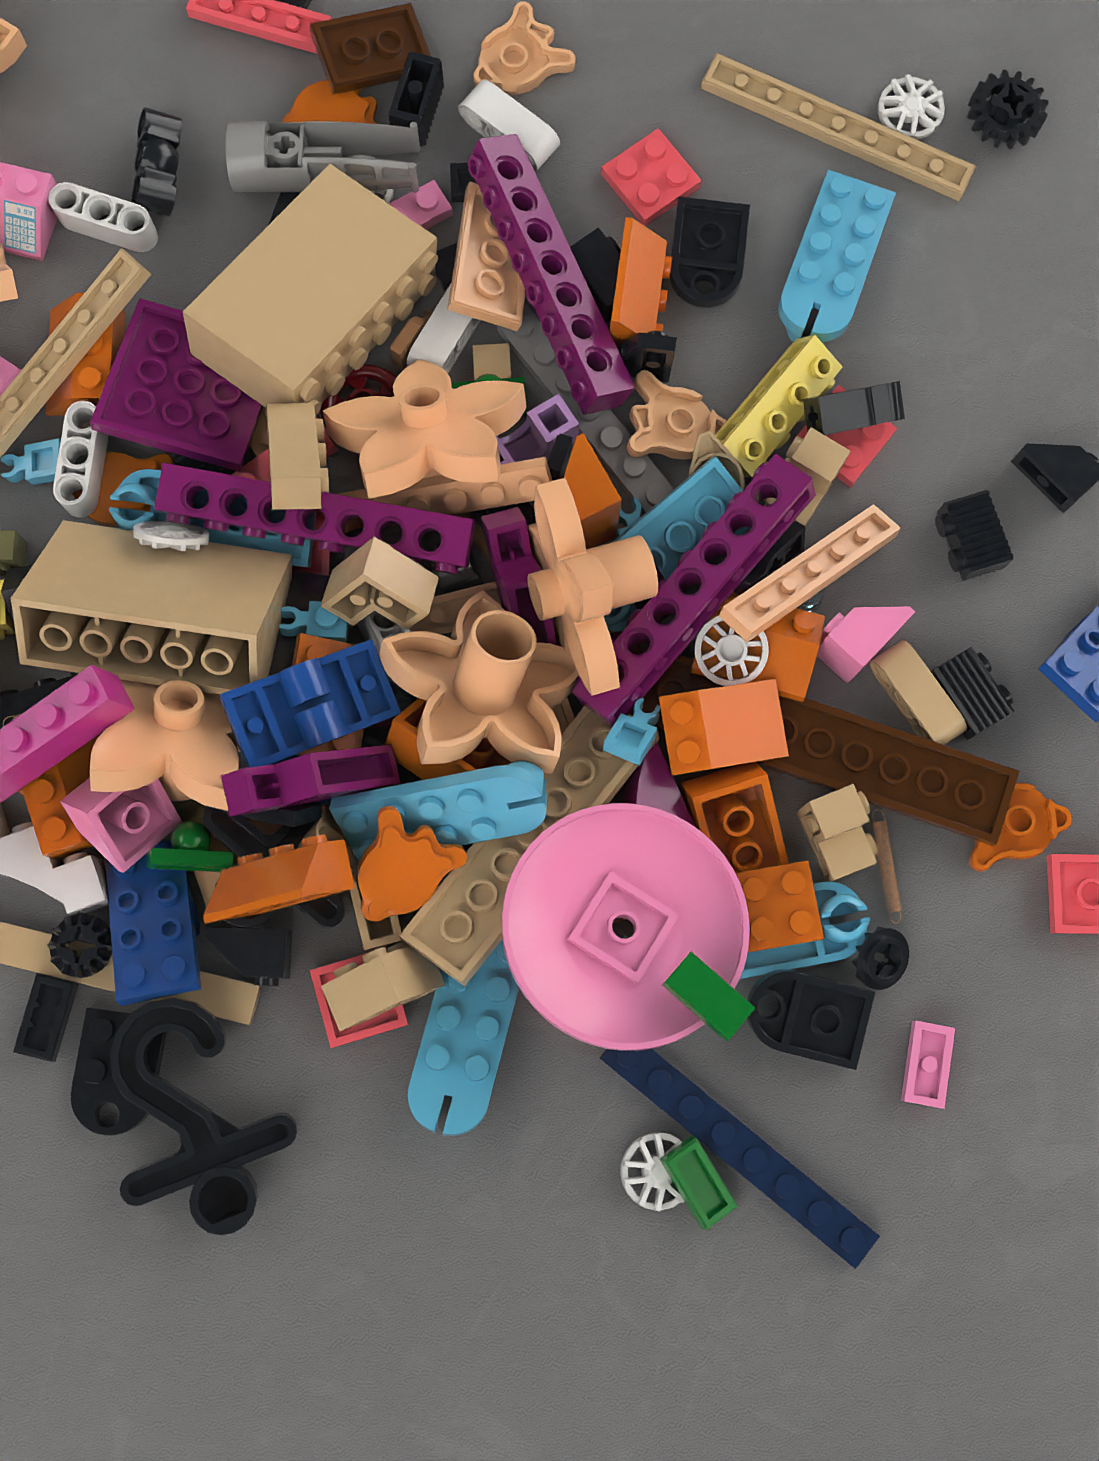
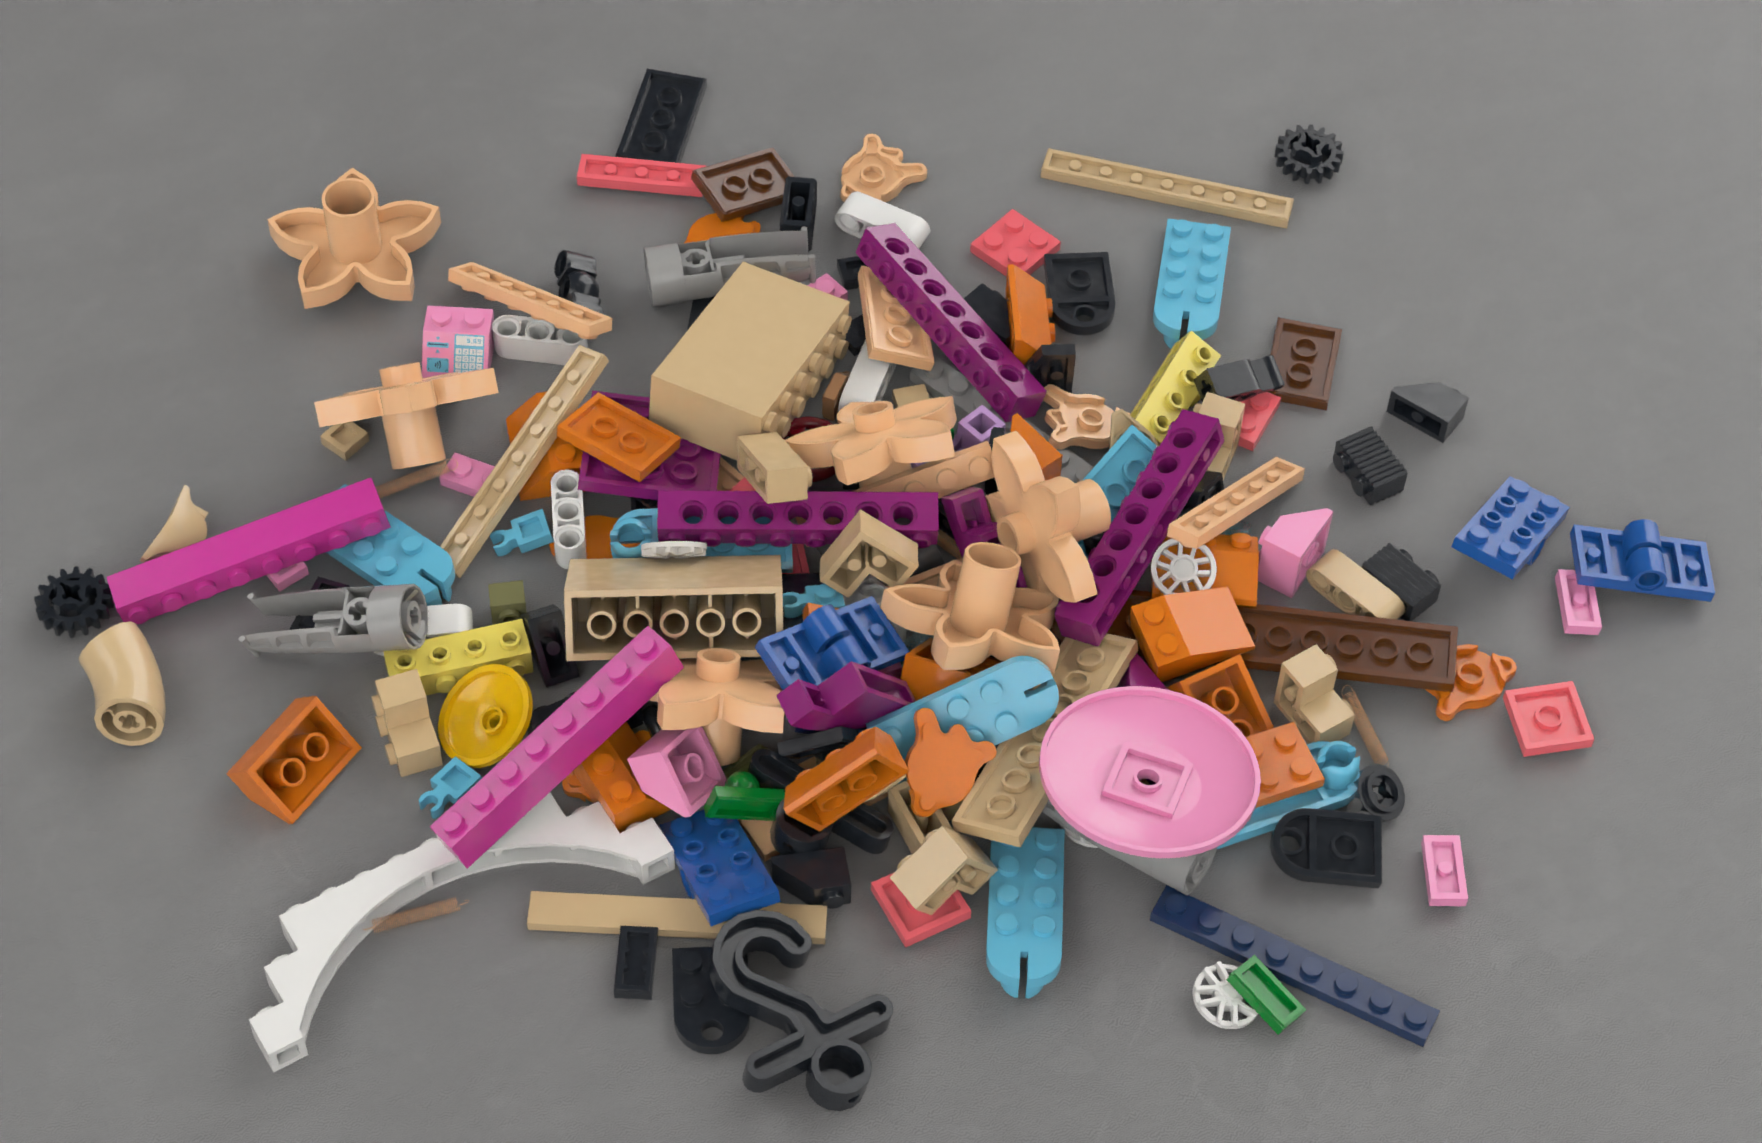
camera: 10 degrees left, 25 degrees down
(92, 959) = (643, 903): black gear -> none
(95, 169) = (531, 300): none -> light nougat plate
(145, 372) = (618, 436): none -> orange plate
(633, 735) = (1115, 641): medium azure plate -> none
(708, 996) = (1236, 804): green tile -> none
(912, 106) = (1226, 164): white wheel -> none
(936, 382) = (1306, 361): none -> reddish brown tile

